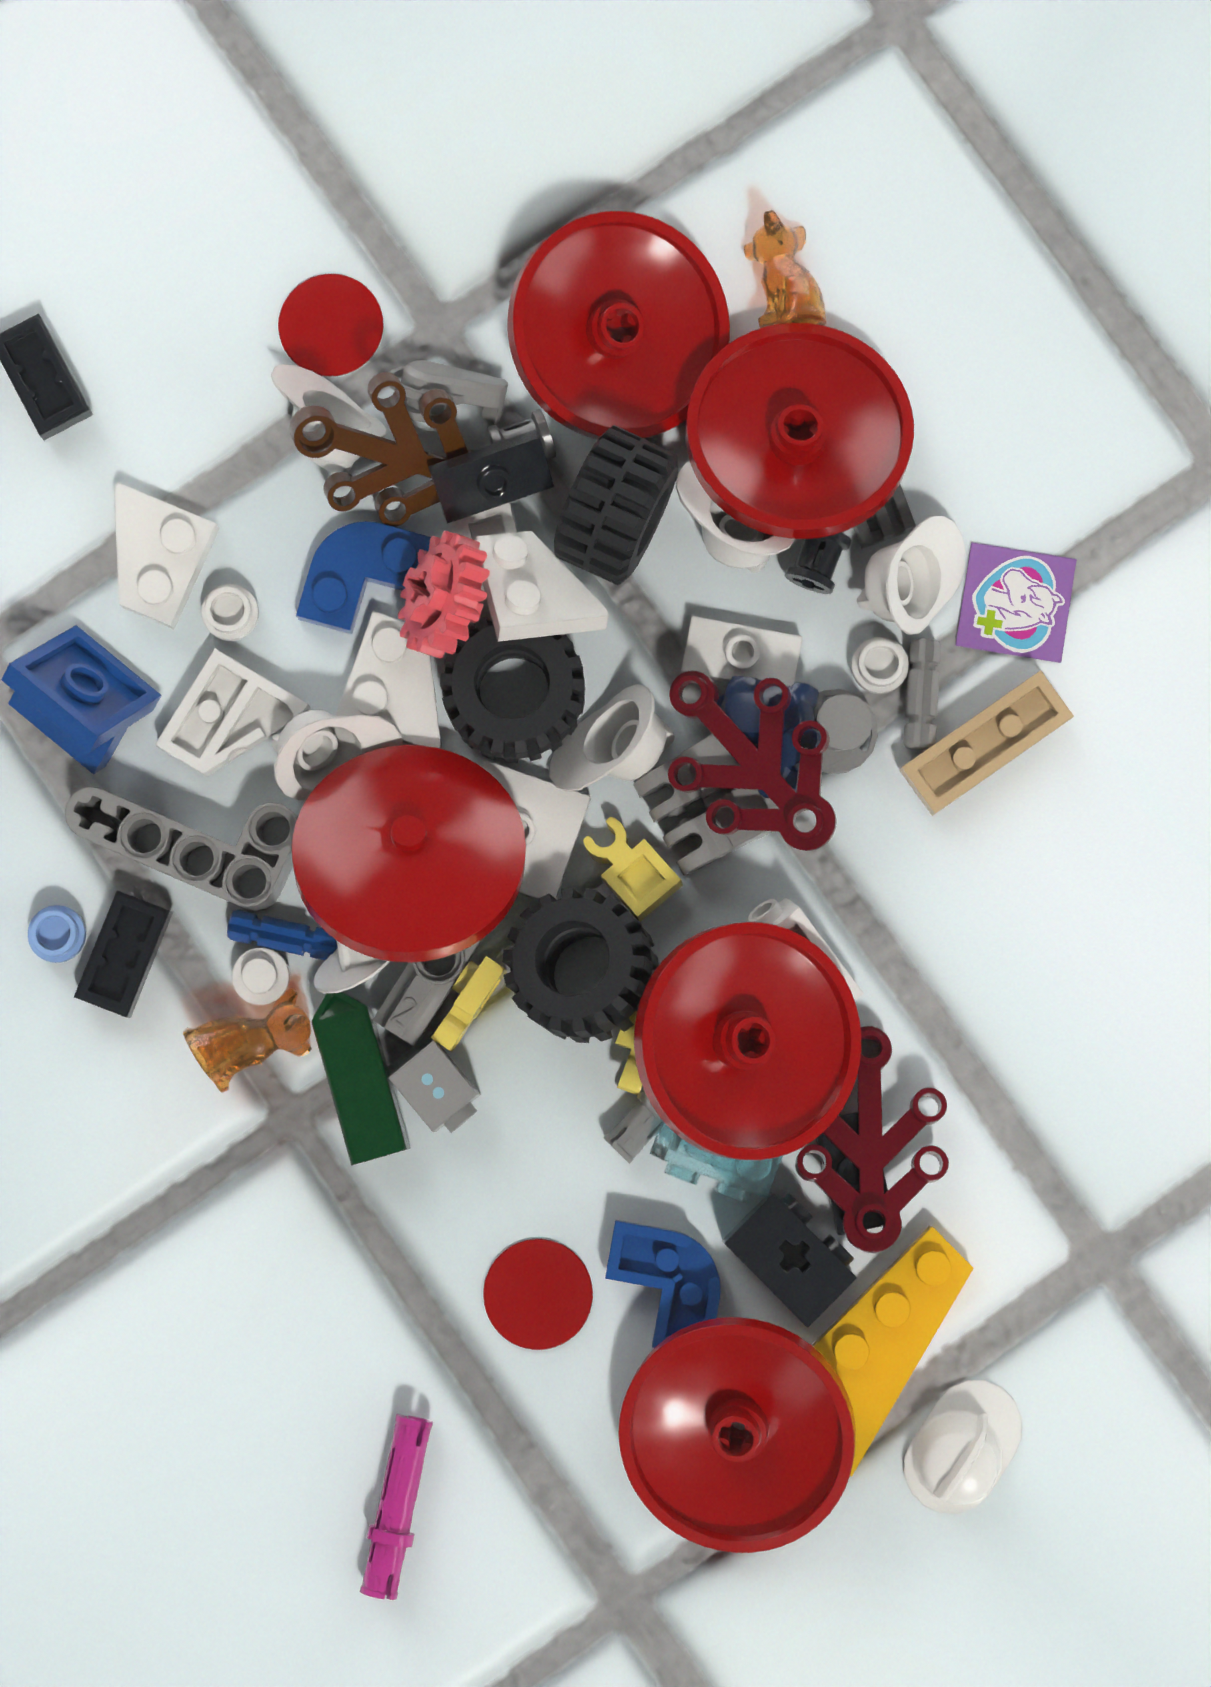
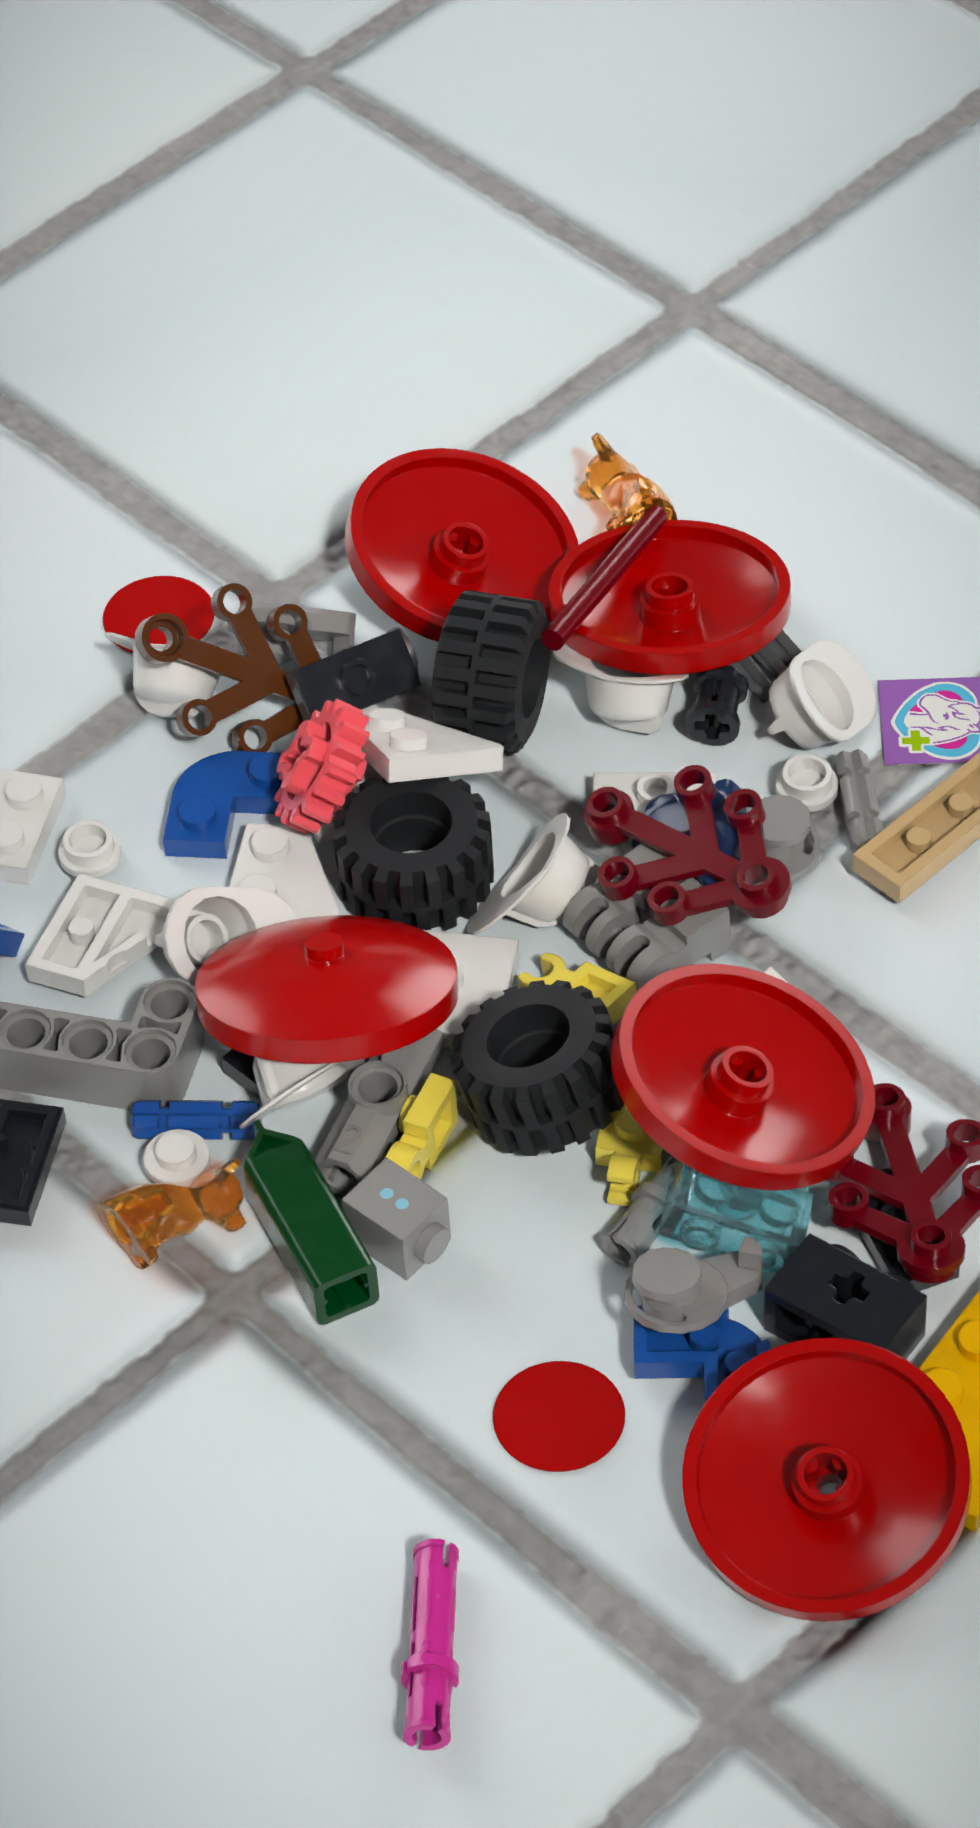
camera: 10 degrees left, 35 degrees down
(663, 1226) = (691, 1293): none -> light grey piece
(741, 409) = (604, 578): none -> dark red bar

